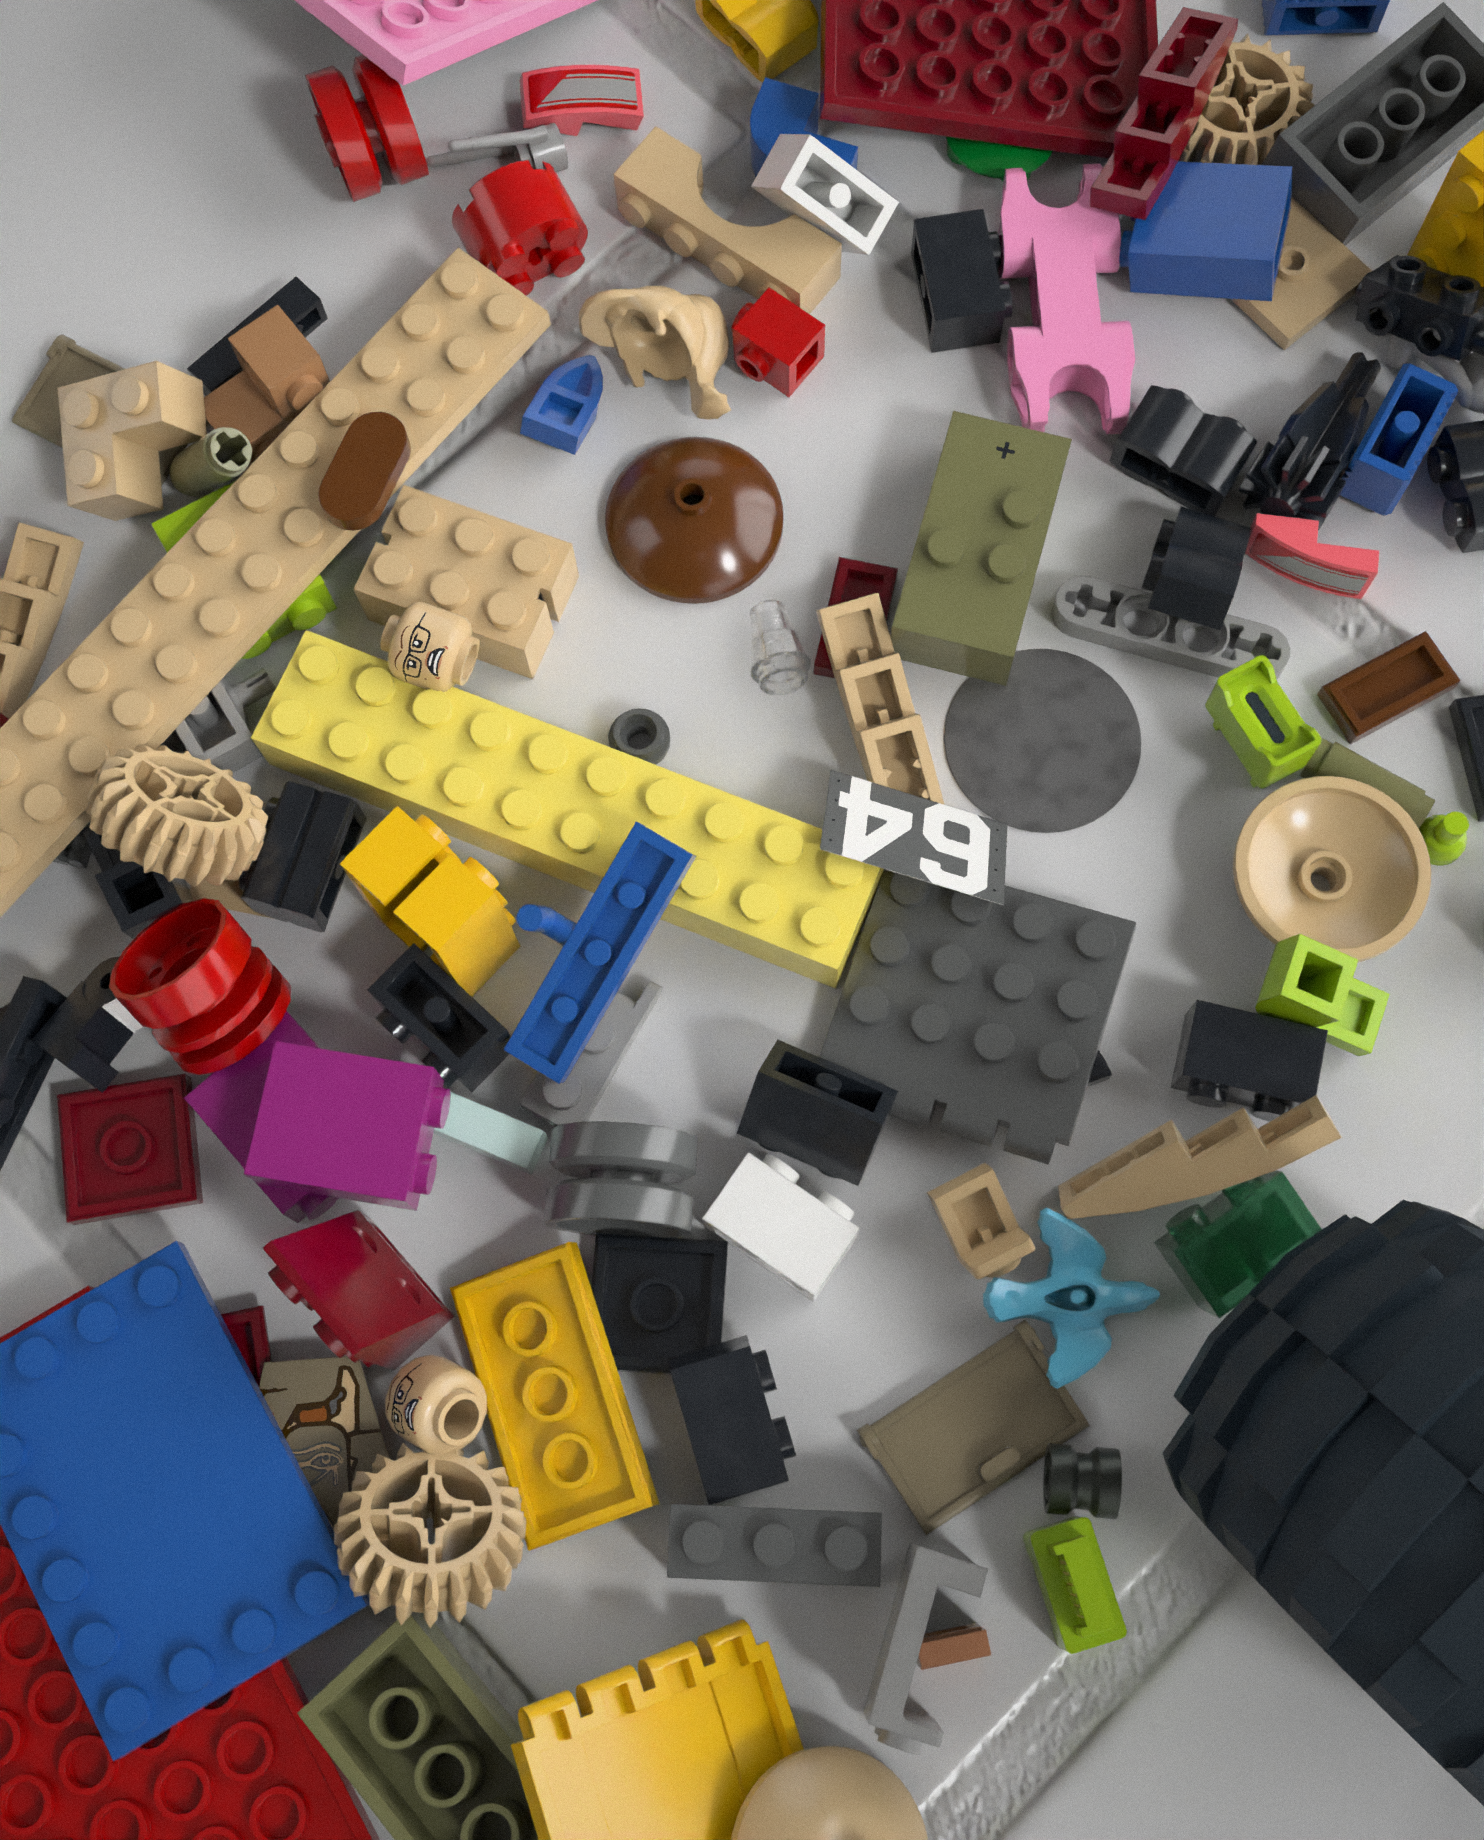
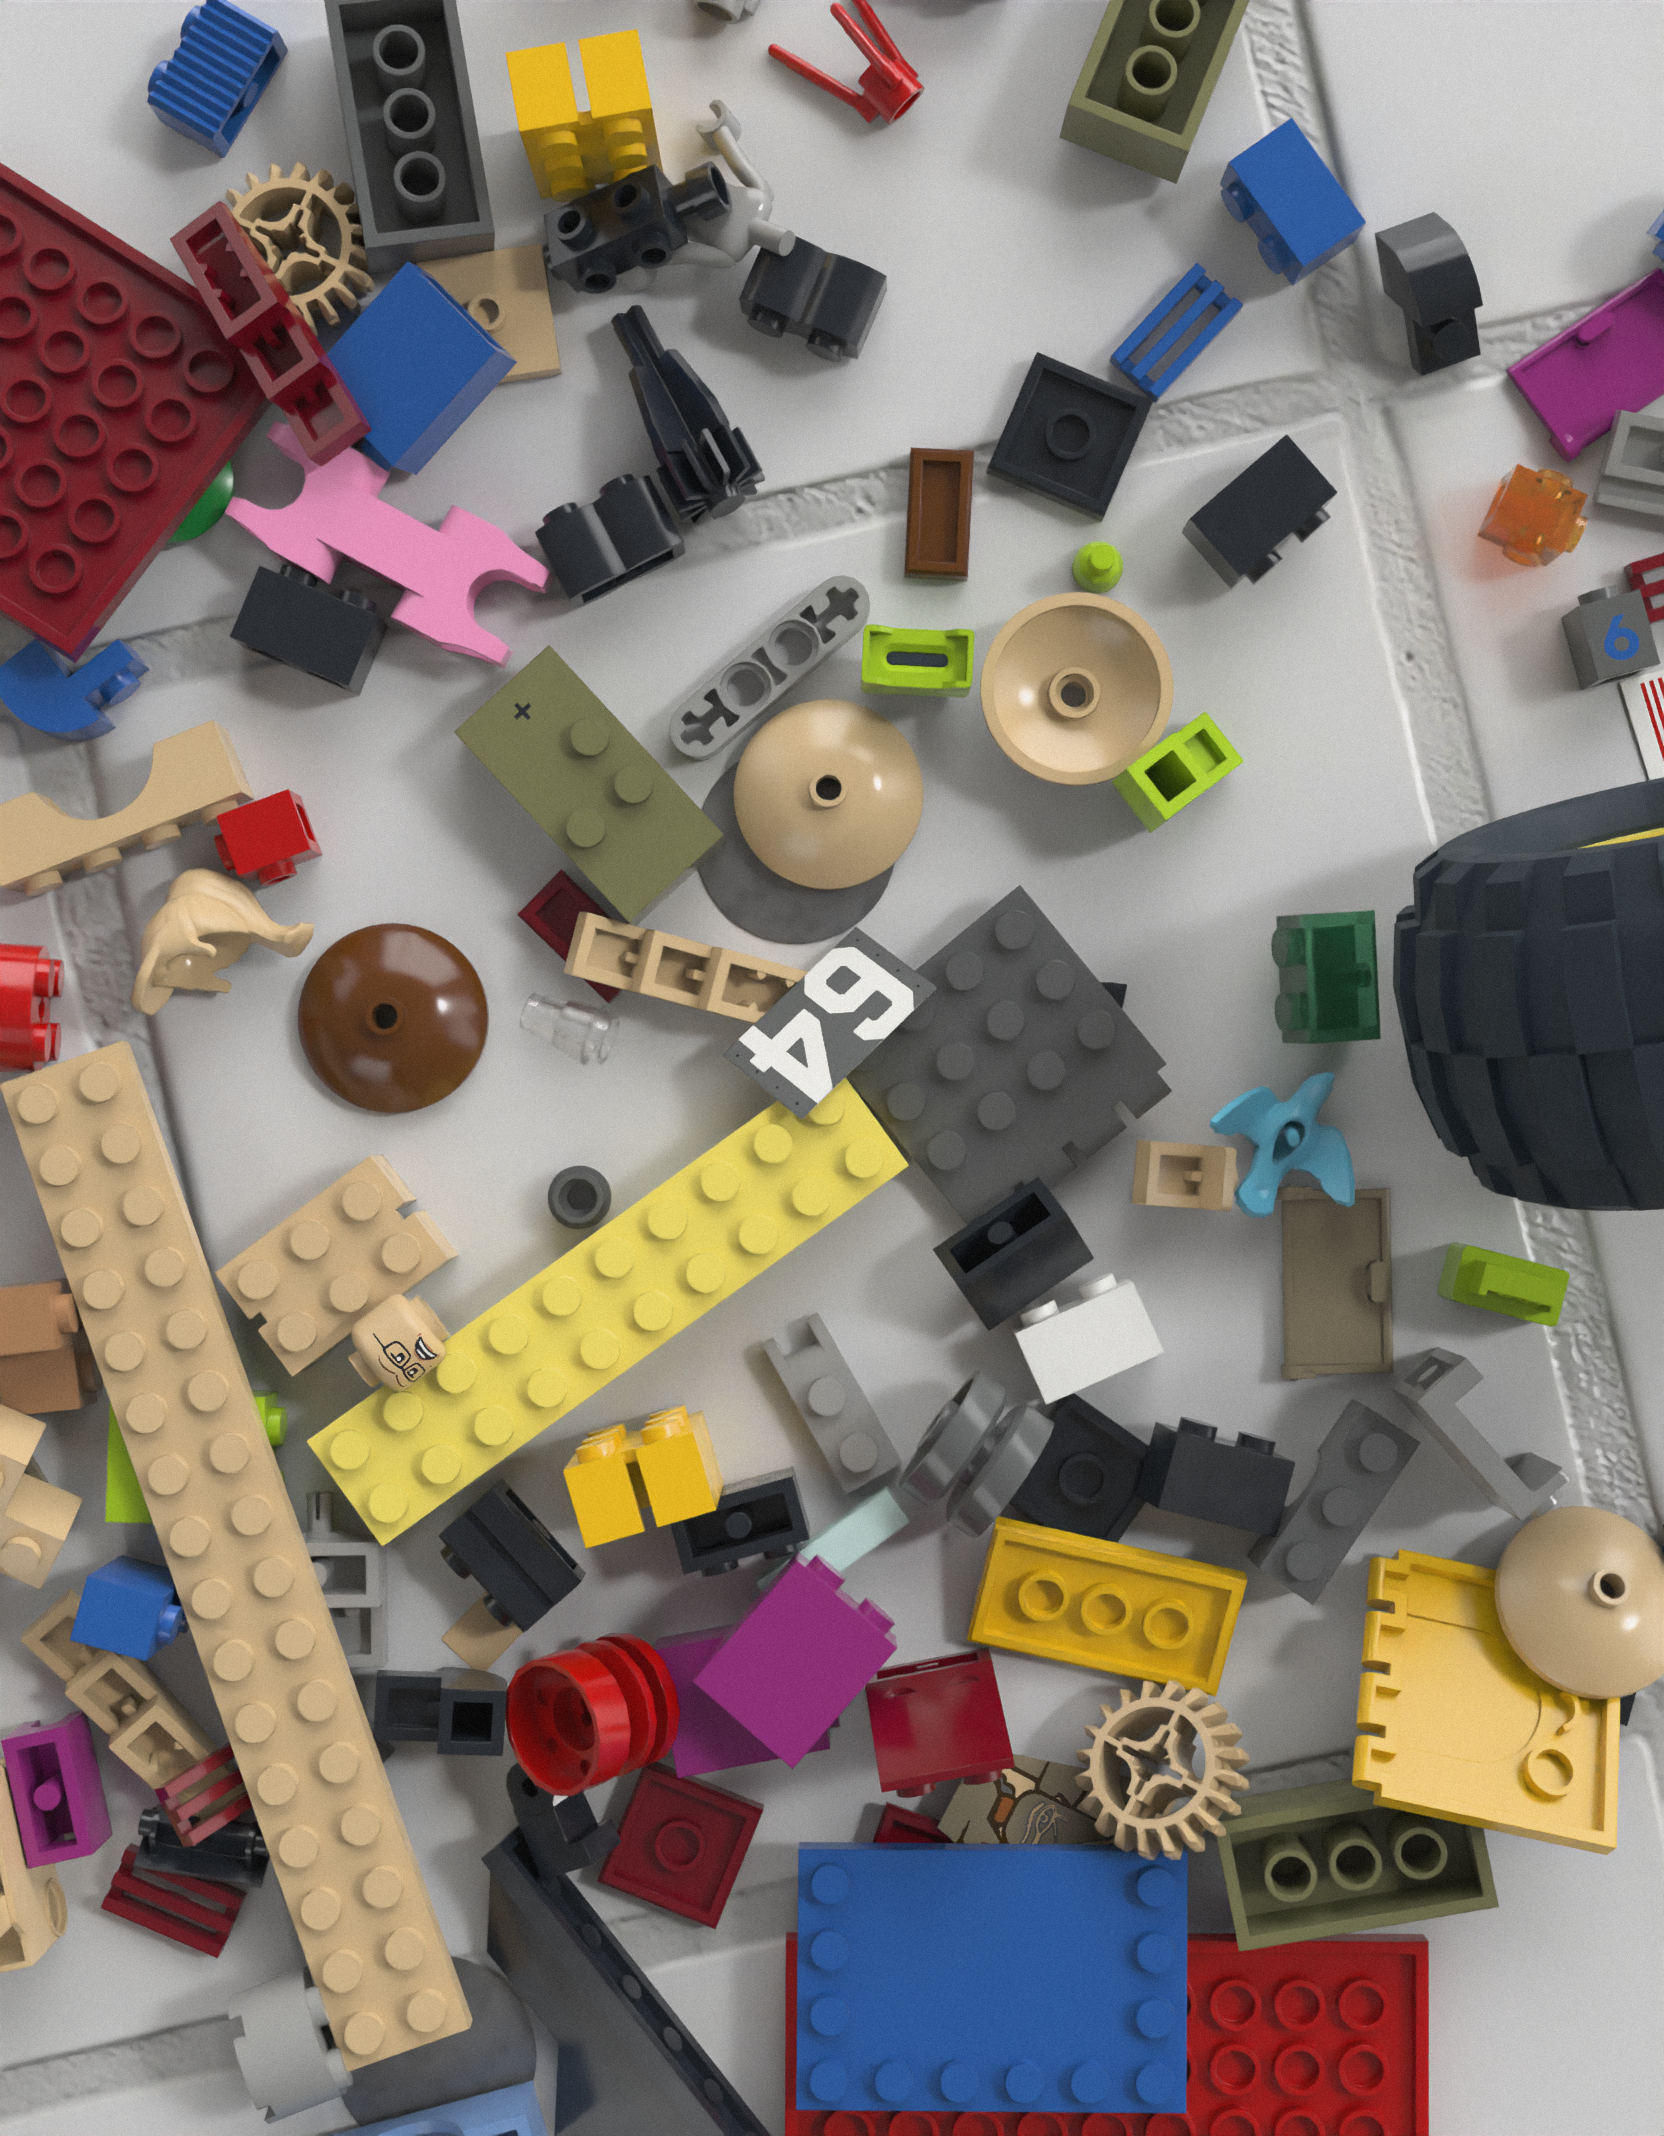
camera: 65 degrees left, 15 degrees up
(83, 571) = (129, 1609): none -> blue brick
(176, 815) = (425, 1653): tan gear -> none
(211, 462) = (75, 1434): olive piece -> none
(364, 471) = (192, 1307): reddish brown tile -> none
(436, 1404) = (1061, 1707): tan head -> none
(565, 405) = (207, 1067): blue plate -> none
(595, 950) = (769, 1361): blue plate -> none
(824, 191) = (154, 706): white brick -> none
(953, 1646) = (1492, 1407): nougat tile -> none
(1082, 1481) = (1431, 1226): pearl dark grey wheel -> none
(1095, 772) = (838, 839): none -> tan dish
(1168, 1169) = (1240, 994): tan slope -> none
(1196, 567) = (735, 610): black brick -> none
(1247, 1060) = (1188, 867): black brick -> none
(1292, 551) = (767, 510): slope -> none
(1342, 762) = (995, 605): olive piece -> none
(1397, 439) = (724, 348): blue brick -> none

